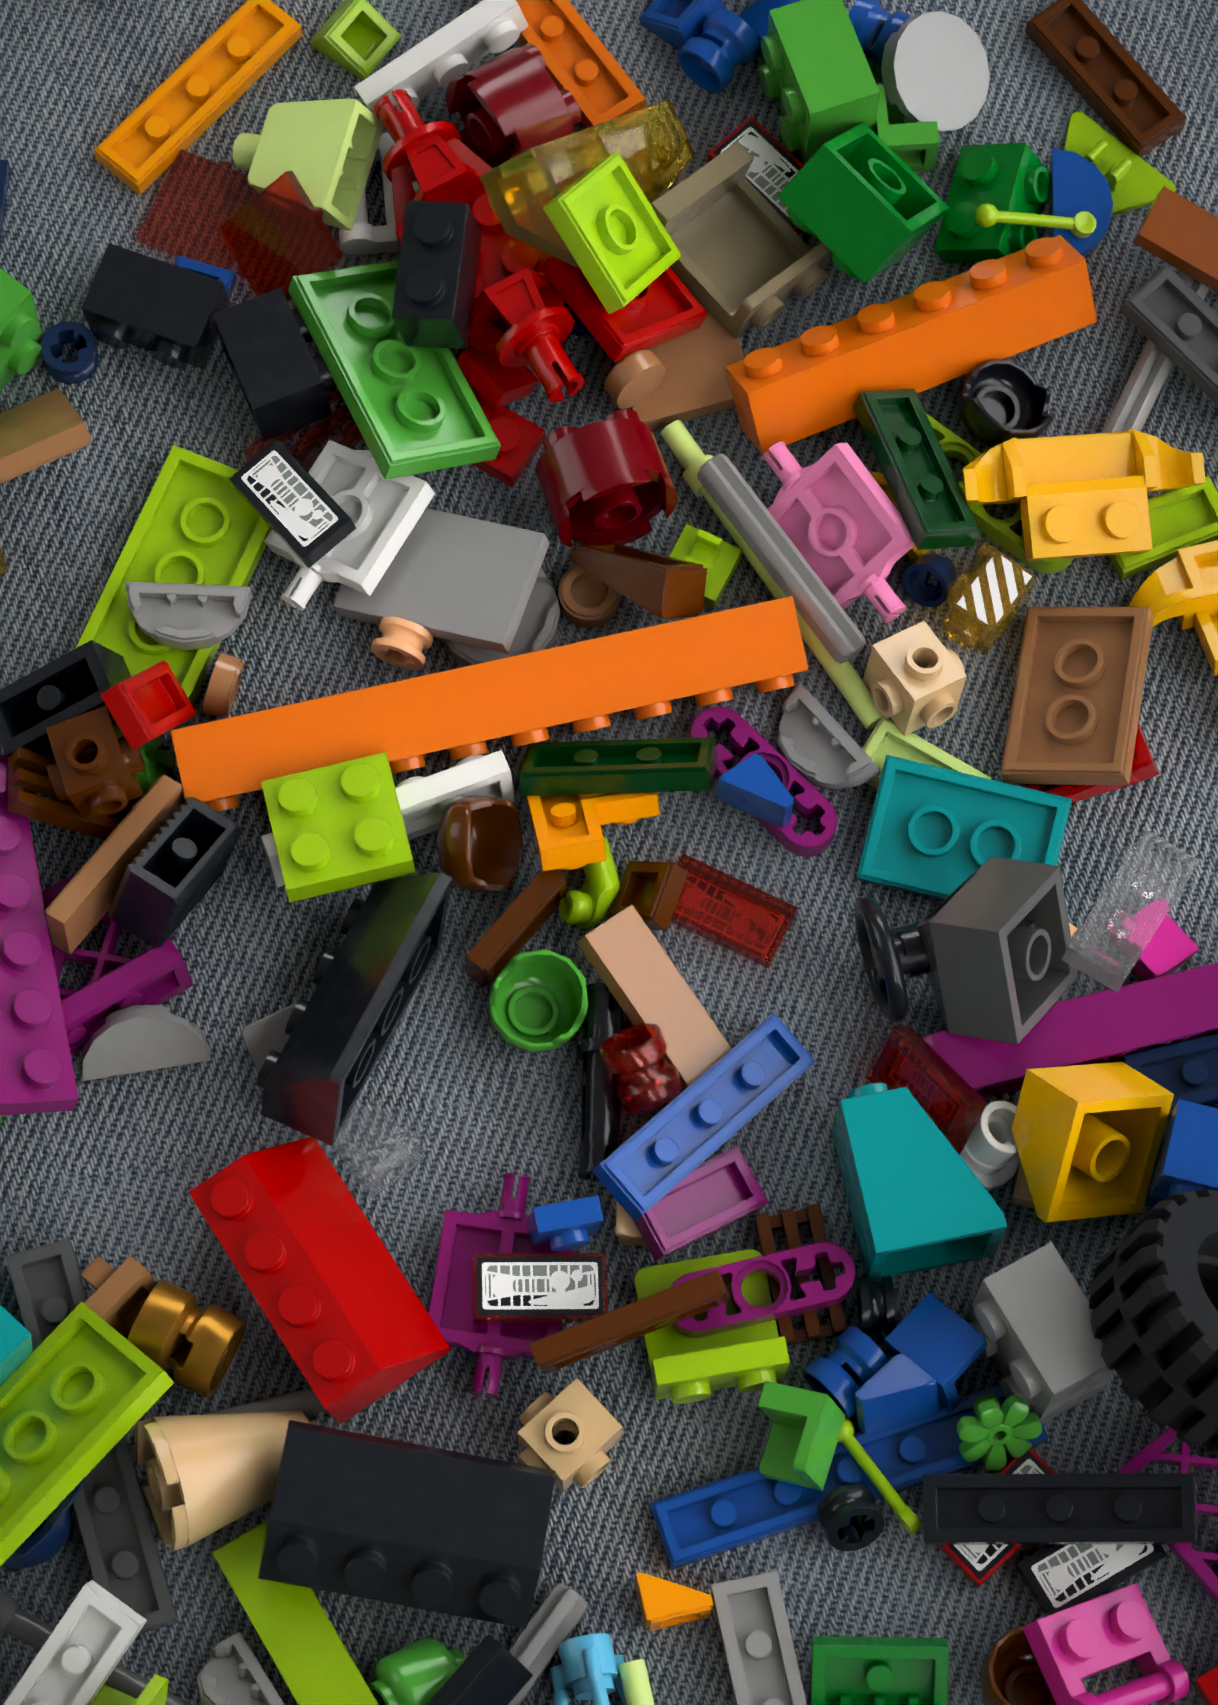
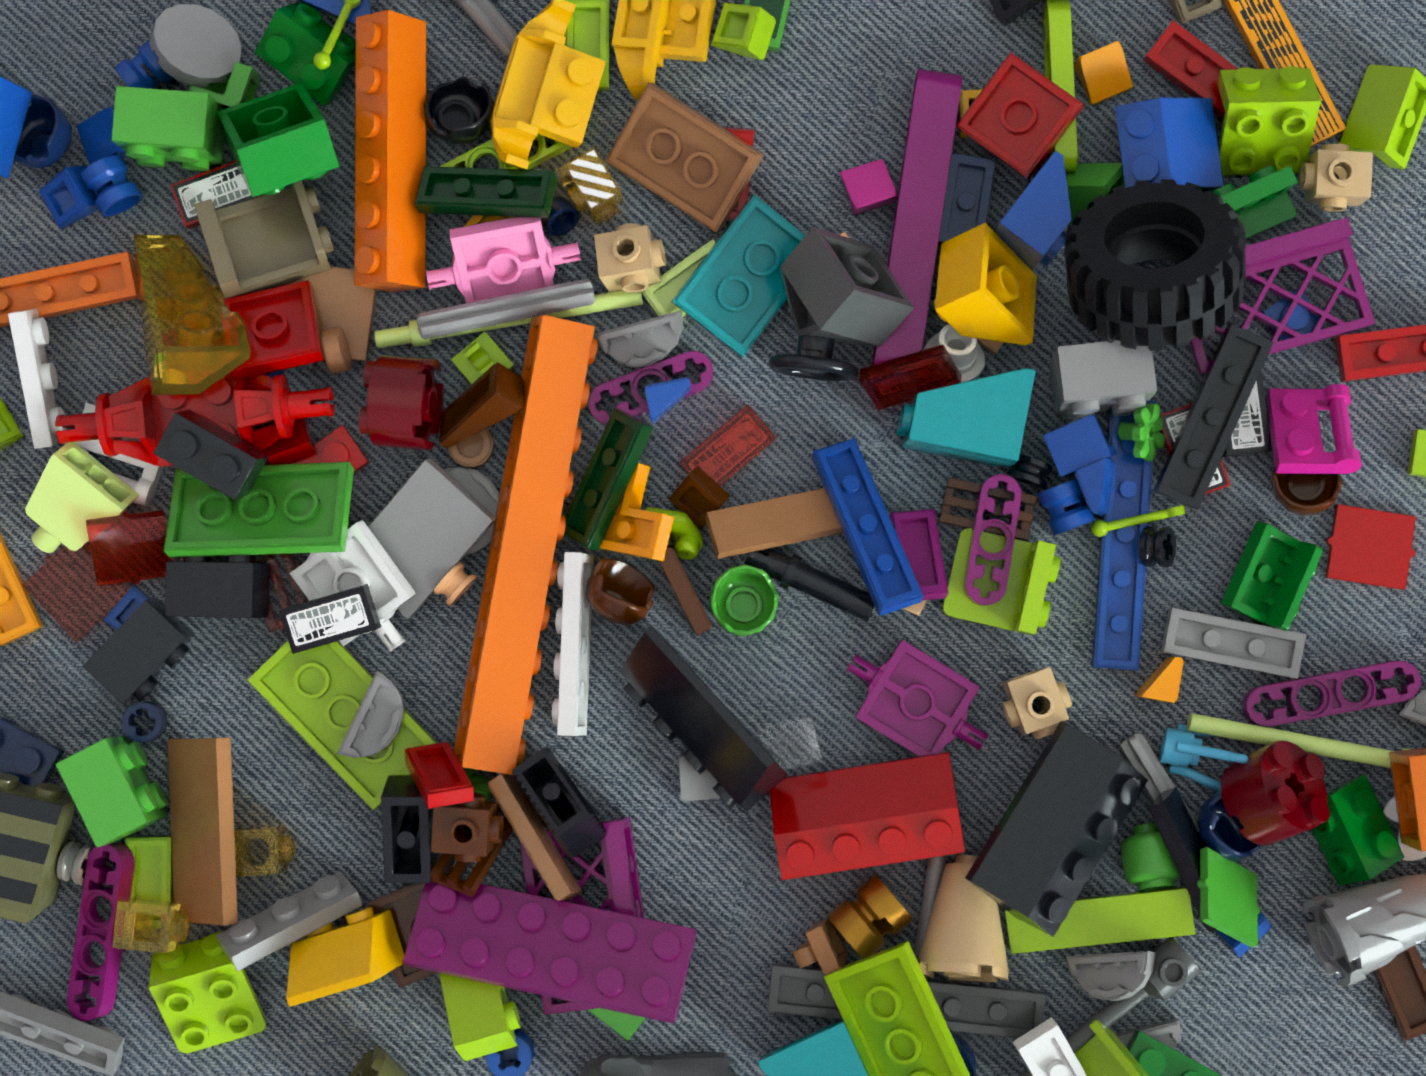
camera: 60 degrees left, 15 degrees up
(142, 1041) = (658, 866): light grey tile -> none
(223, 685) = (434, 715): medium nougat tile -> none
(338, 827) = (575, 683): lime plate -> none
(511, 106) = (101, 348): dark red brick -> none
(538, 1287) = (935, 680): tile -> none
(565, 1223) = (904, 646): blue plate -> none
(612, 232) = (233, 321): lime tile -> none
(630, 1322) = (987, 633): reddish brown tile -> none
(641, 1070) = (819, 553): clear red wheel -> none
(801, 1434) = (1098, 558): bright green panel -> none
(1130, 910) = (846, 191): clear tile -> none

